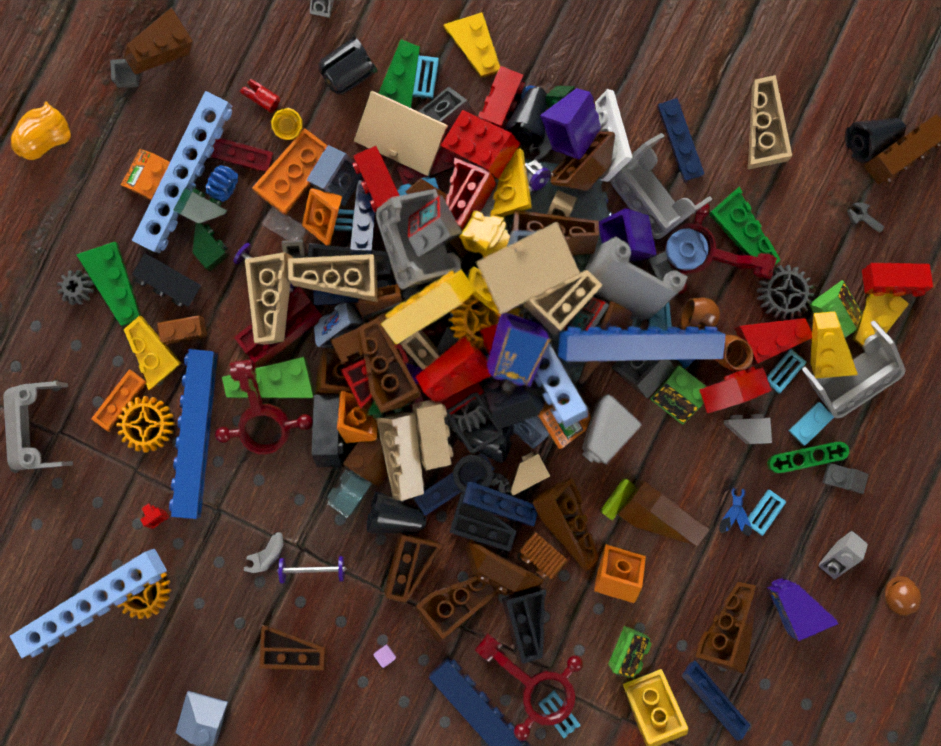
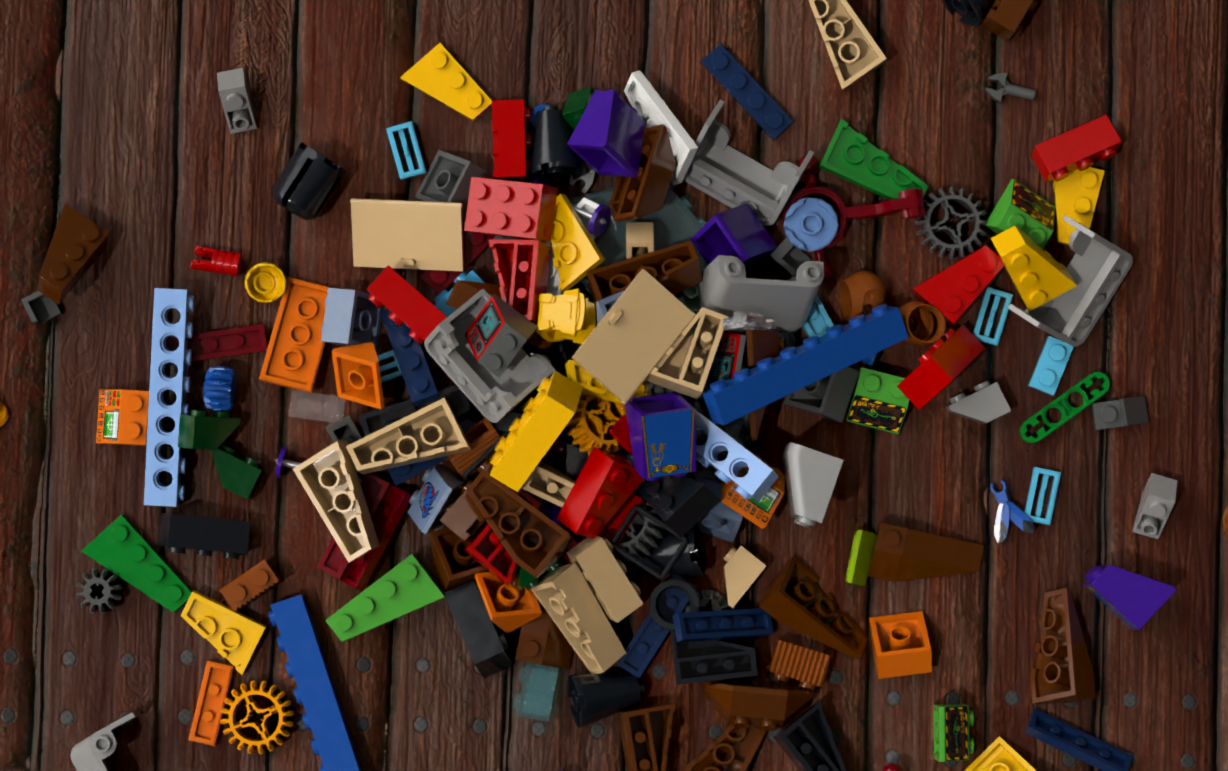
camera: 20 degrees left, 0 degrees up
(245, 373) = (356, 602): dark red piece -> none
(401, 74) = (375, 162): green wing -> none
(612, 293) = (748, 321): none -> clear plate

